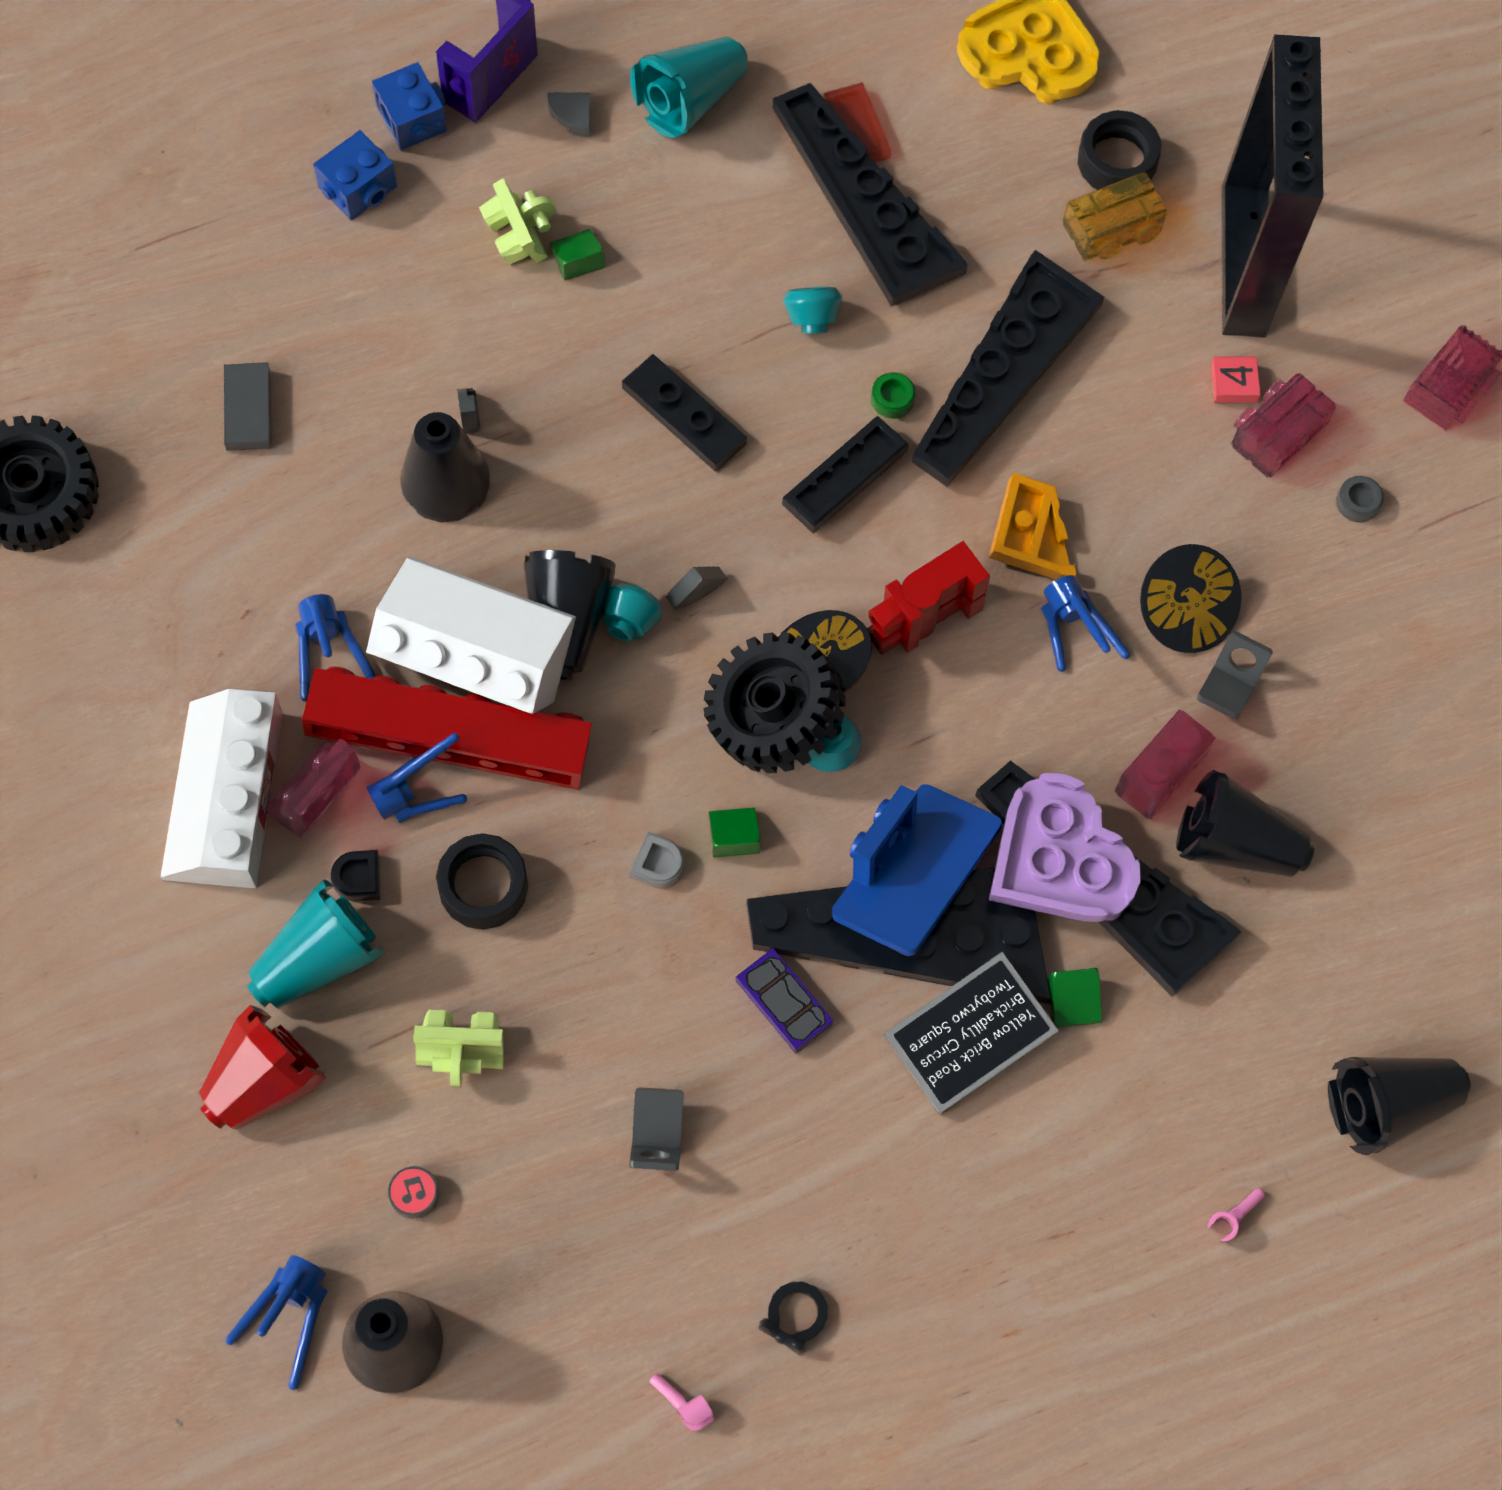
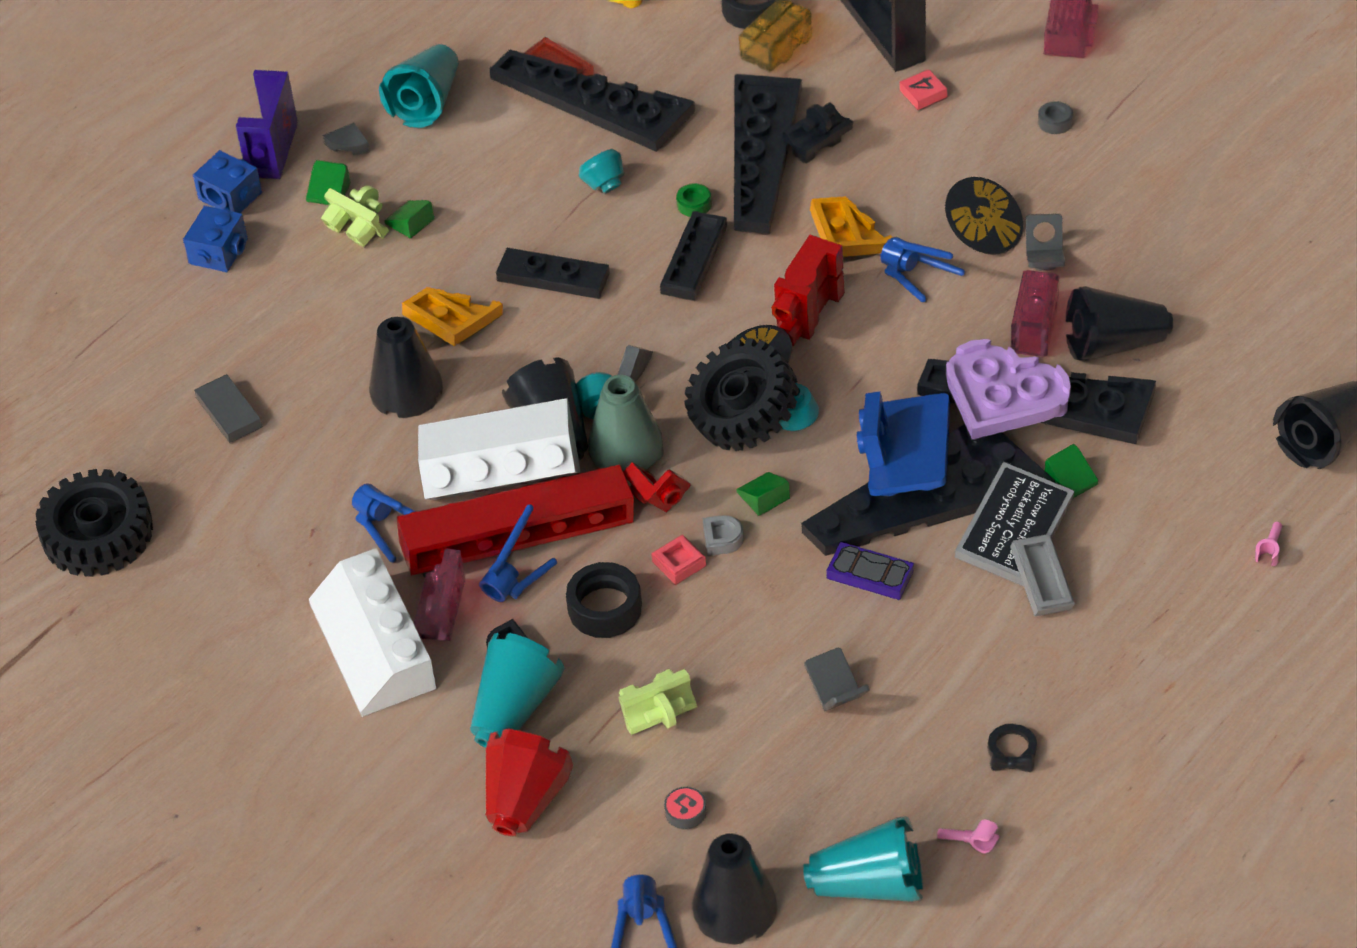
camera: 20 degrees left, 20 degrees down
(516, 161) = (327, 176): none -> green slope
(541, 411) = (449, 314): none -> light orange wing
(548, 1391) = (869, 865): none -> teal cone
(594, 868) = (679, 559): none -> coral tile
(614, 766) = (662, 492): none -> red bracket
(625, 683) = (624, 427): none -> sand green cone
(958, 1118) = (1042, 575): none -> light grey tile
(1077, 380) = (818, 129): none -> black hips
(1283, 424) = (973, 96): clear pink brick -> none

